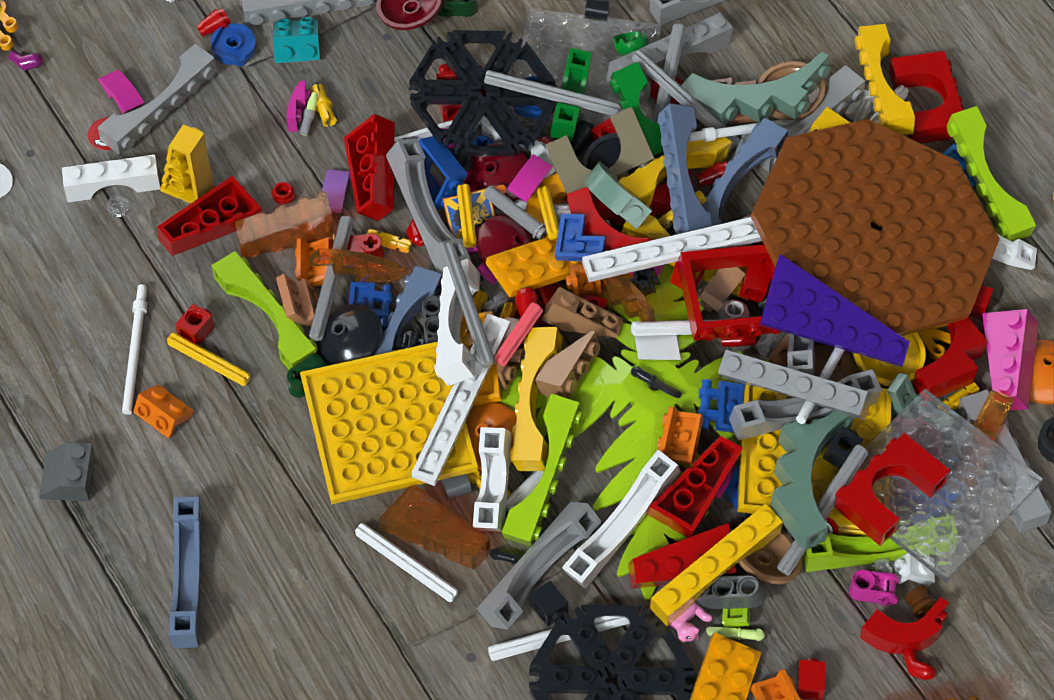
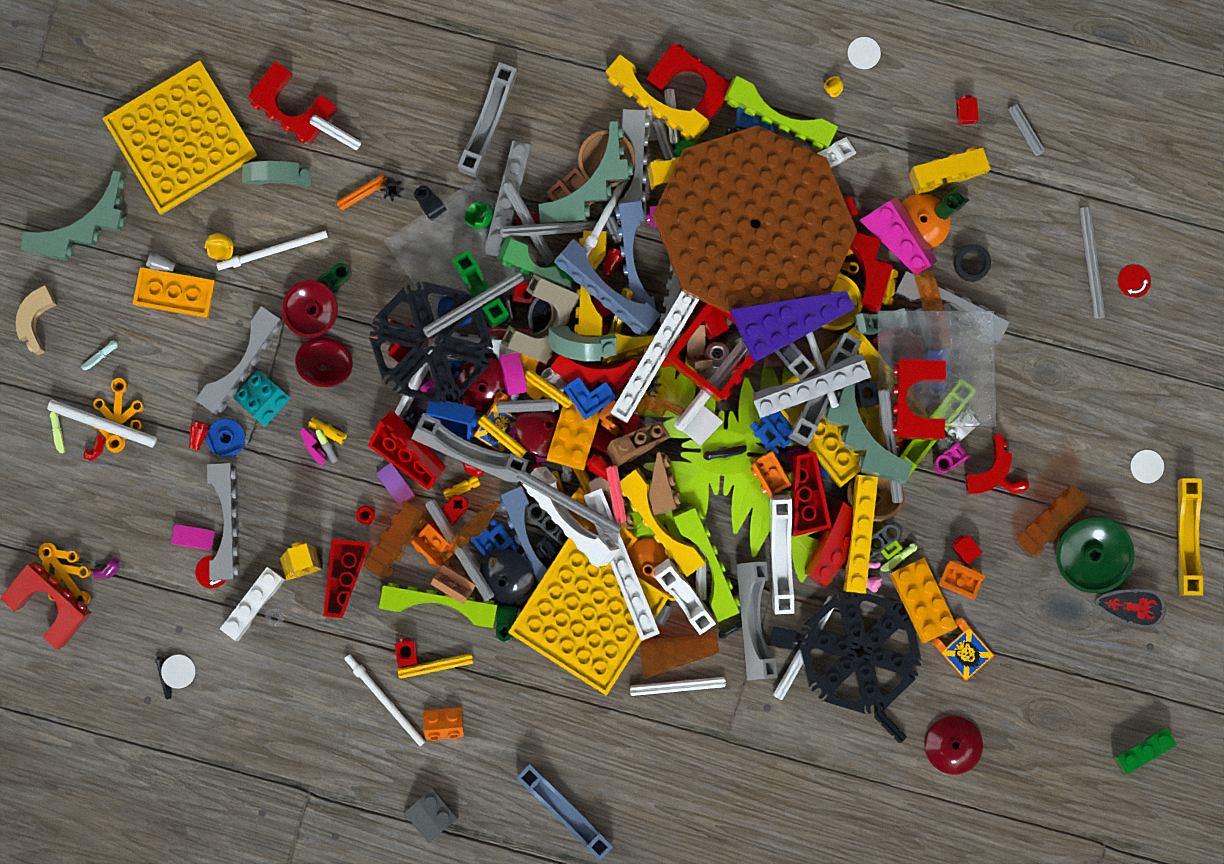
camera: 40 degrees left, 25 degrees up
(376, 49) = (326, 355): none -> dark red dish
(920, 600) = (983, 444): reddish brown wheel -> none

